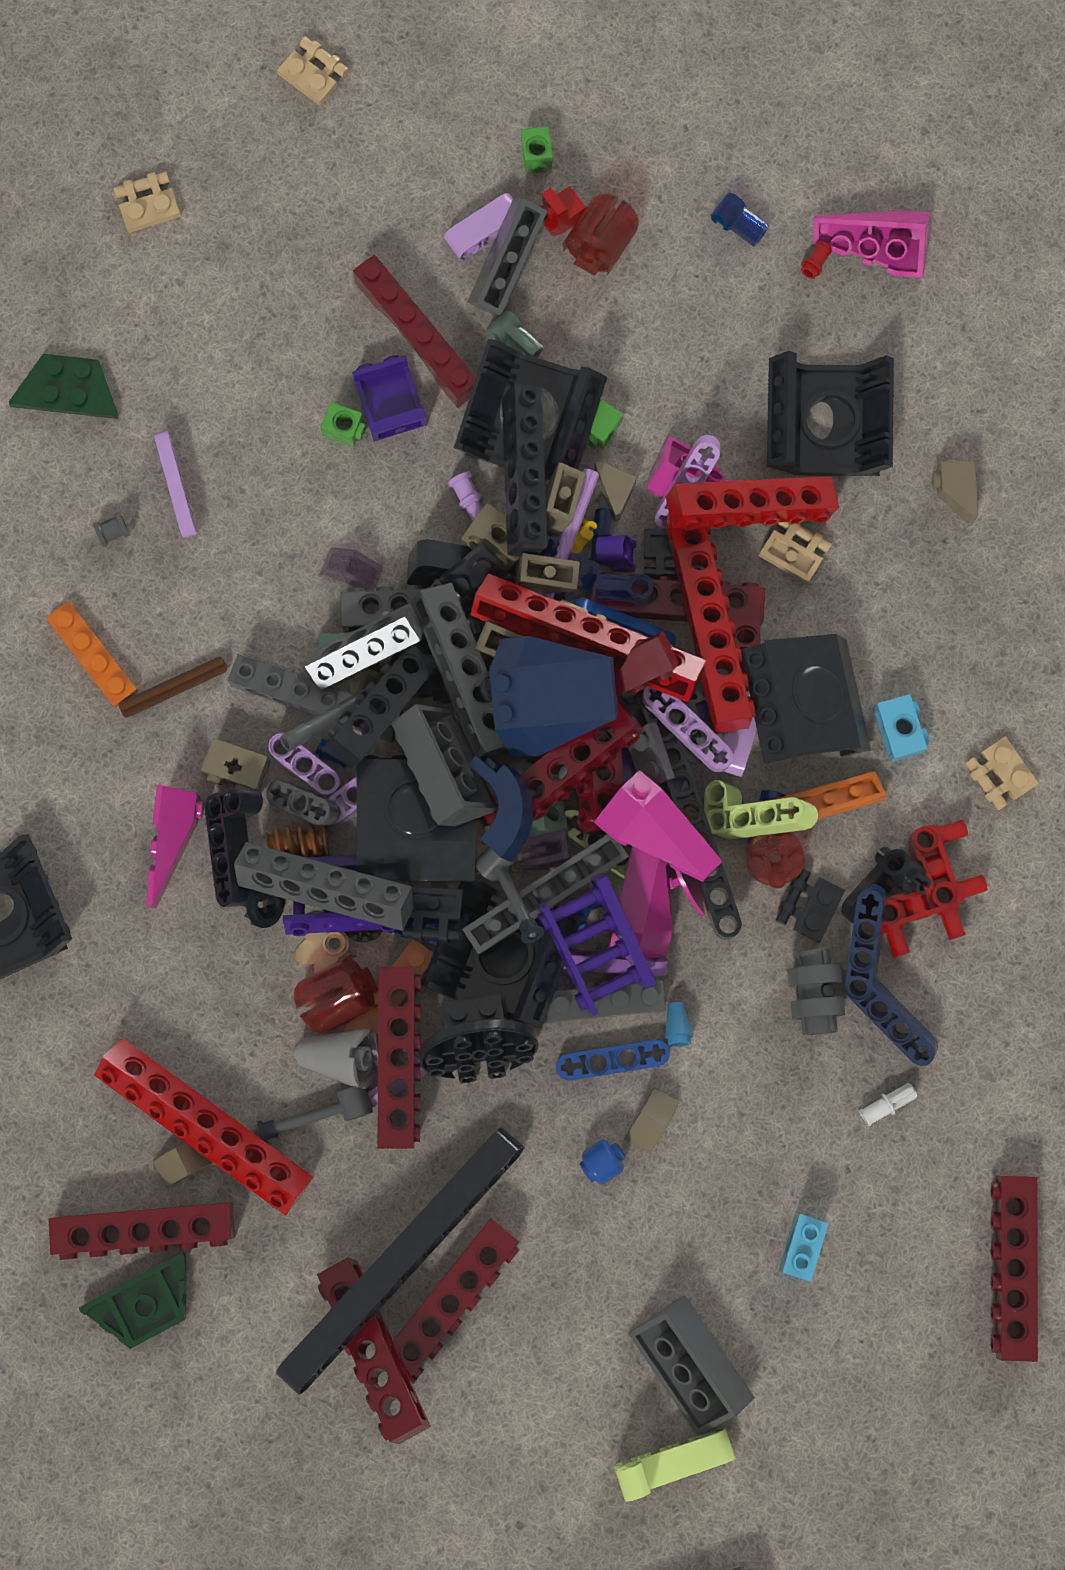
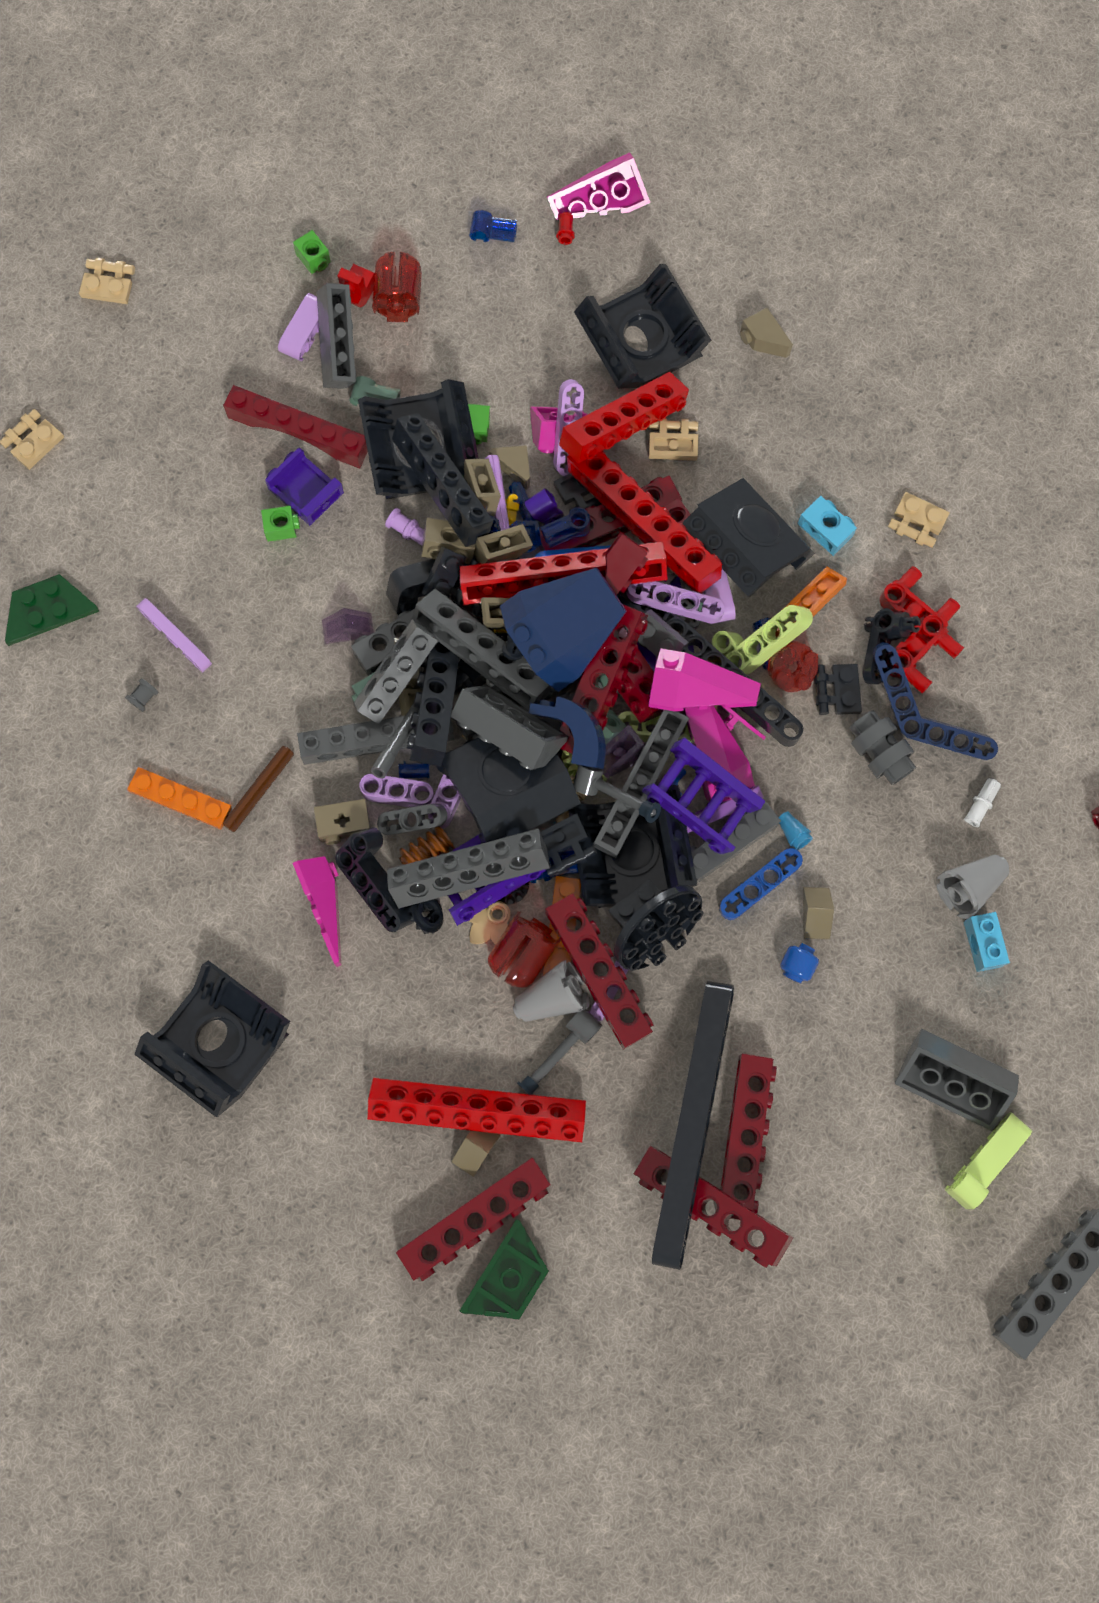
camera: 30 degrees left, 5 degrees down
(825, 1181) = (972, 884): none -> light grey cone

